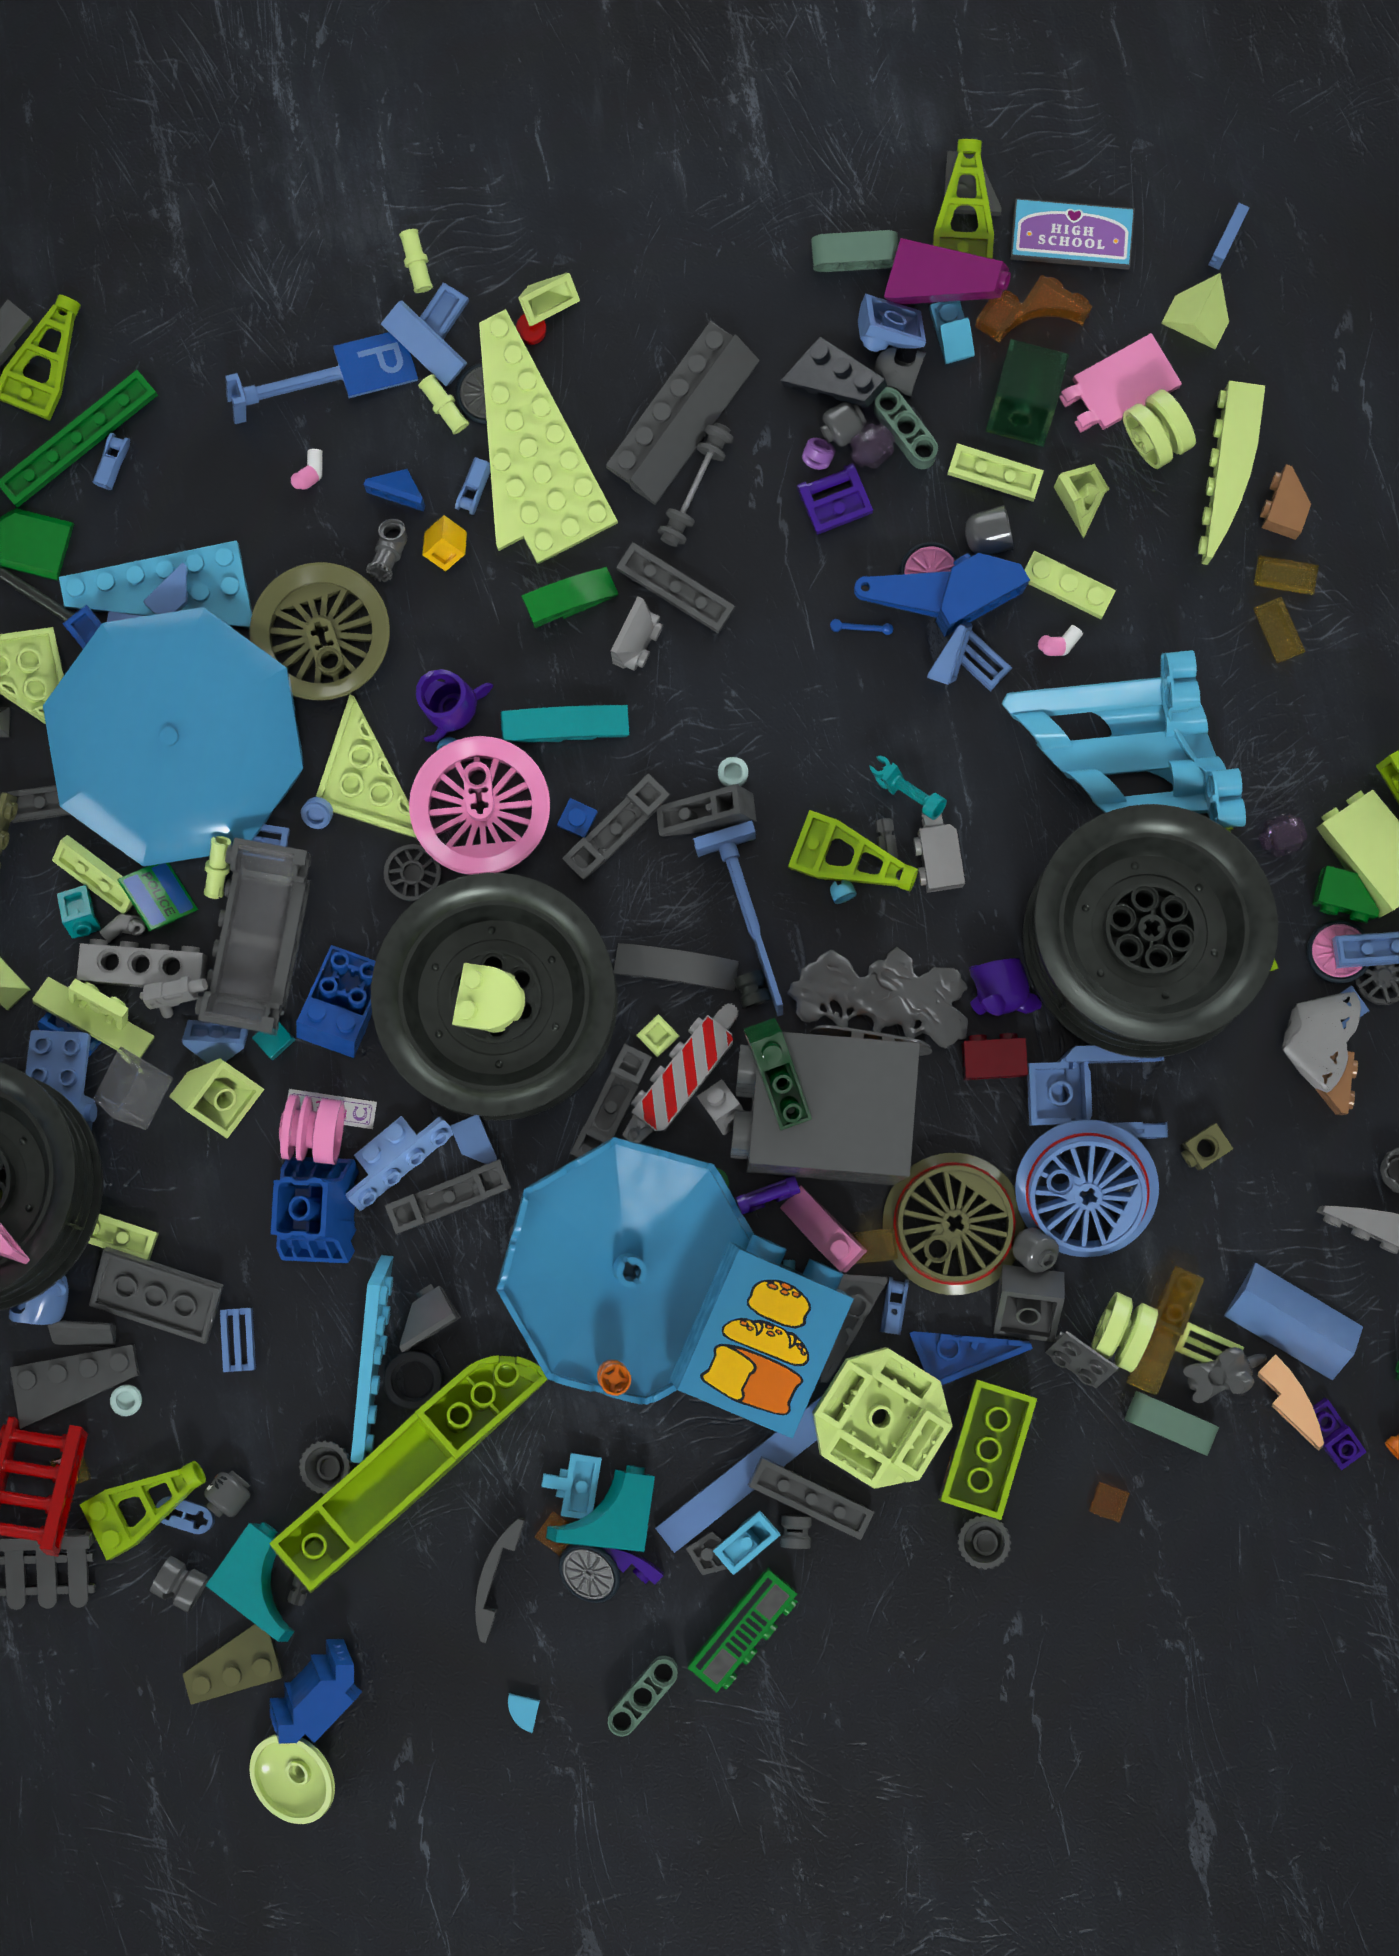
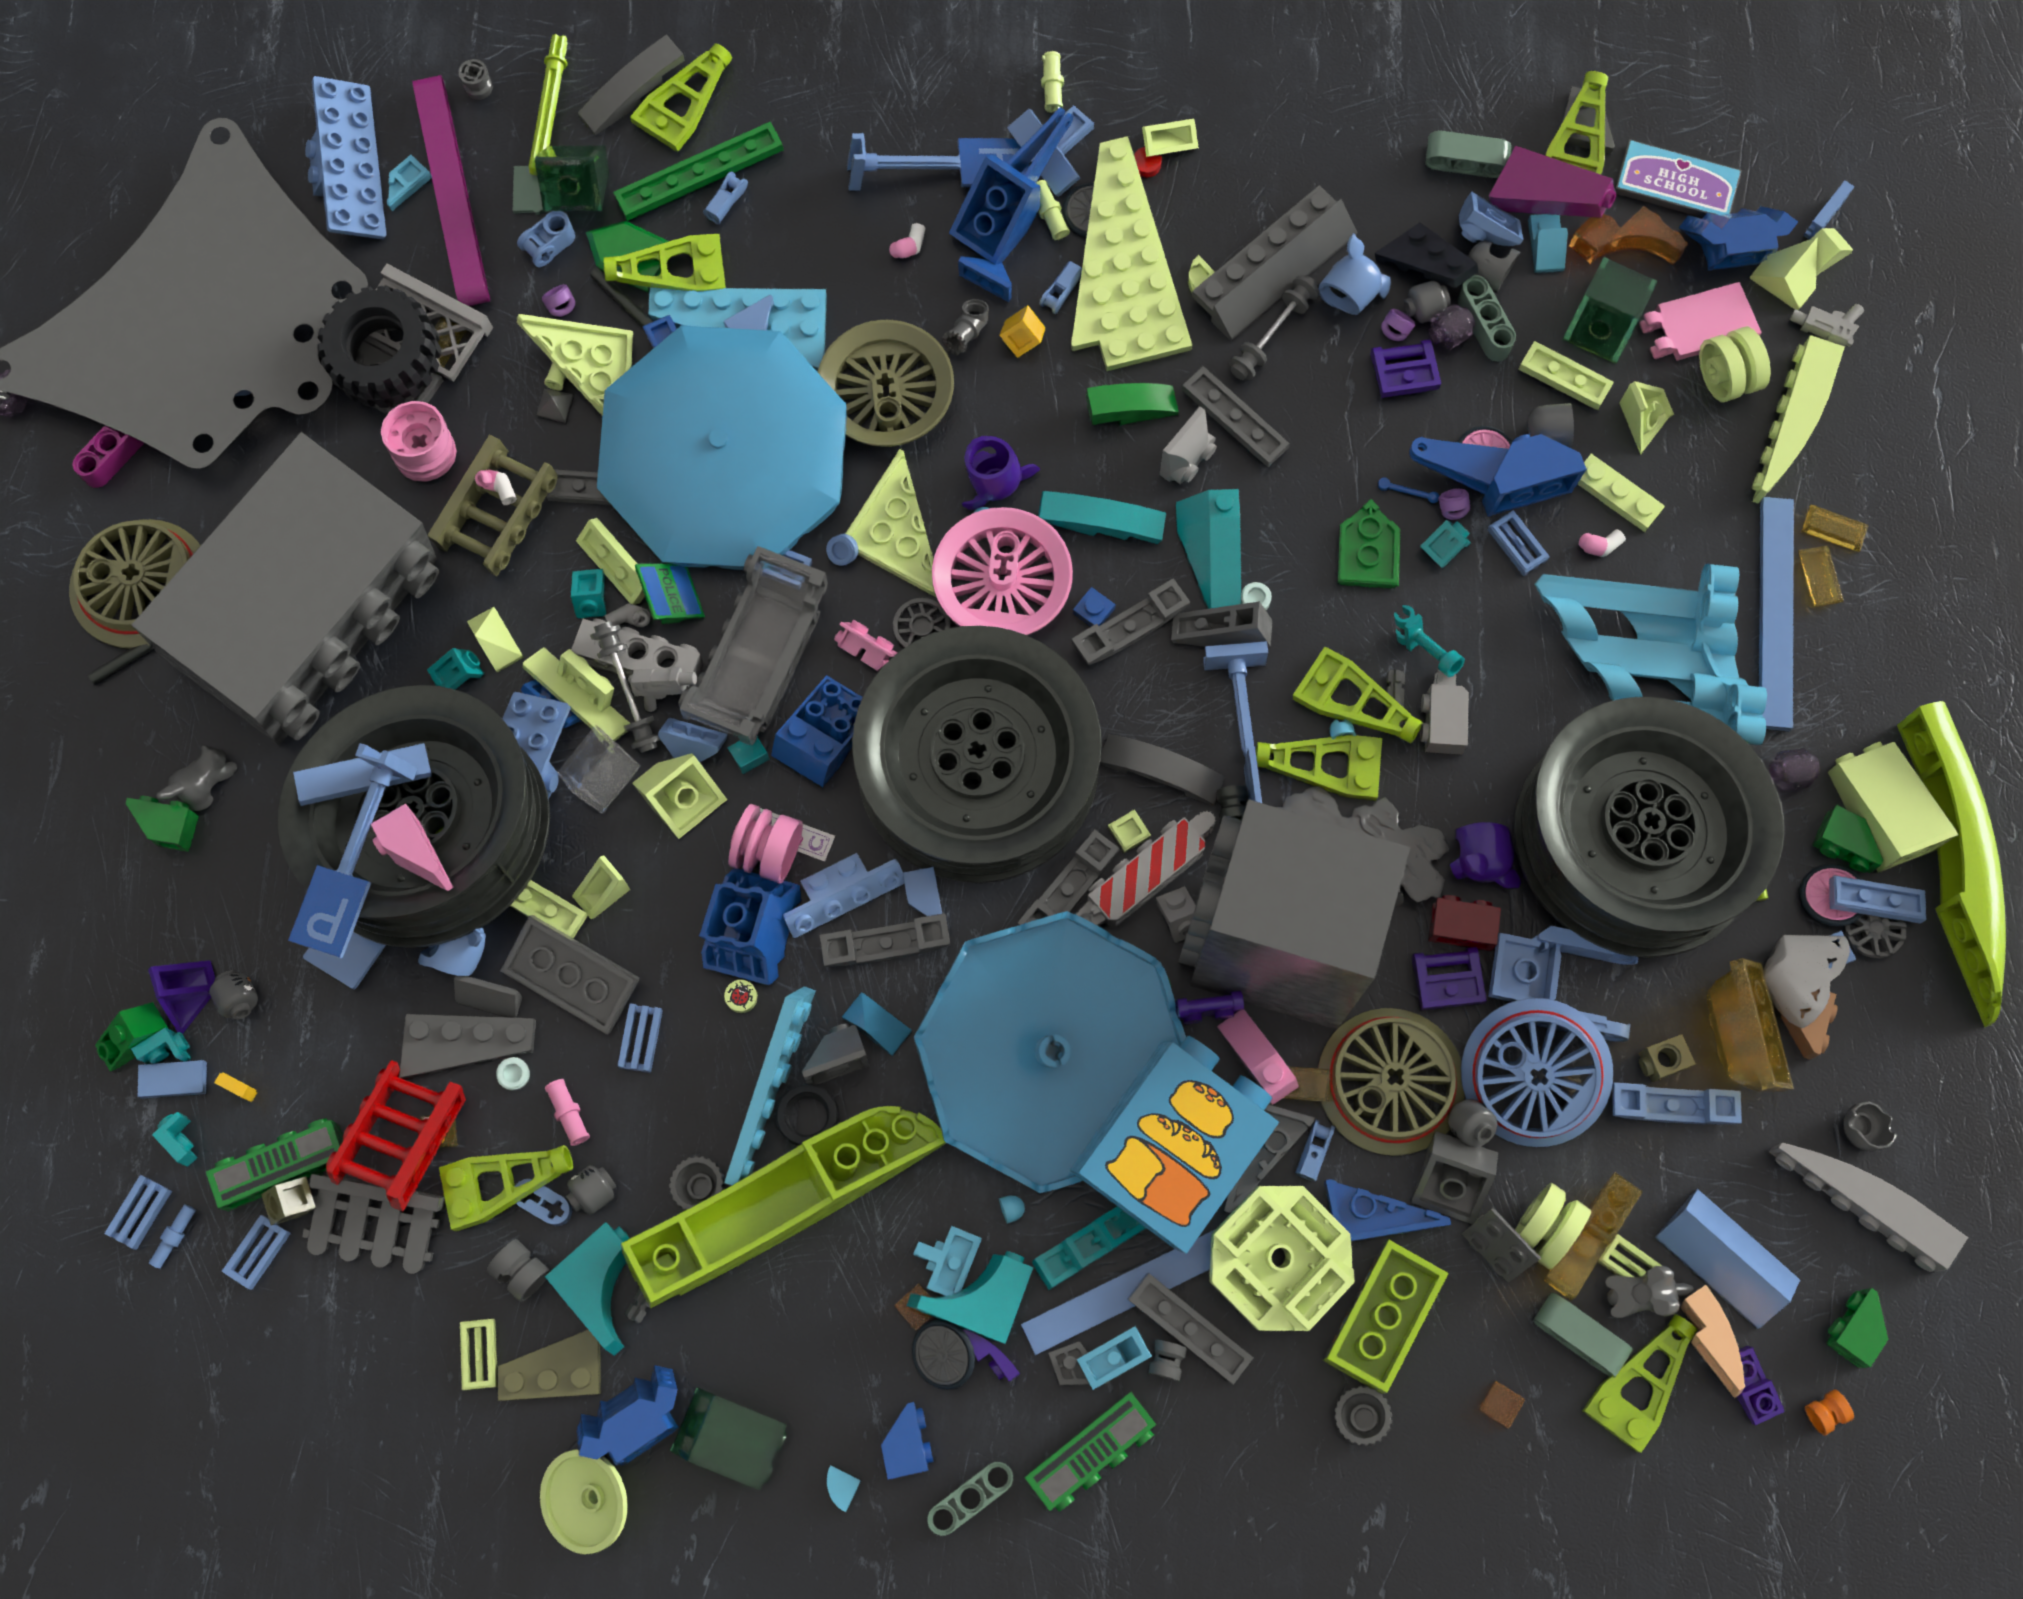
camera: 10 degrees right, 10 degrees down
(108, 535) = (706, 263): none -> lime plate
(108, 959) = (610, 645): none -> dark grey axle
(164, 1206) = (600, 888): none -> yellowish green slope
(173, 1662) = (492, 1382): none -> yellowish green tile
(186, 1426) = (567, 1112): none -> bright pink pin
(216, 867) = (733, 578): yellowish green pin -> none
(323, 1279) = (741, 996): none -> tile
(352, 899) = (856, 638): none -> bright pink hinge
(393, 413) = (1005, 200): none -> blue slope
(410, 1692) = (729, 1439): none -> clear green slope
(458, 1276) = (877, 1024): none -> dark azure slope
(485, 1614) = (868, 1301): dark grey slope -> none
(487, 999) = (971, 744): yellowish green slope -> none
(572, 1664) = (904, 1447): none -> blue slope
(609, 440) = (1198, 272): none -> yellowish green tile
(615, 1382) = (1019, 1153): orange wheel -> none
(624, 1422) = (1012, 1208): none -> medium azure hinge
(678, 724) = (1212, 539): none -> teal wedge
(697, 1446) = (1086, 1246): none -> teal slope
(765, 419) = (1356, 278): none -> medium blue piece
(778, 1073) = (1259, 843): dark green slope -> none
(834, 697) = (1369, 549): none -> green tile
(869, 921) = (1362, 765): none -> lime plate
(908, 675) = (1446, 542): none -> teal bracket
(909, 632) = (1453, 501): none -> medium lavender tile
(949, 661) = (1491, 533): medium blue slope -> none
(994, 1123) = (1449, 988): none -> dark purple plate
(1141, 283) = (1738, 237): none -> blue slope
(1219, 1489) = (1621, 1417): none -> lime plate
(1222, 1188) = (1676, 1105): none -> medium blue slope
(1236, 276) = (1830, 248): none -> yellowish green slope
(1242, 677) = (1776, 610): none -> medium blue tile
(1254, 361) = (1833, 327): none -> light grey piece
(1277, 1106) = (1748, 1029): none -> clear yellow windscreen
(1288, 506) = (1848, 463): medium nougat slope -> none

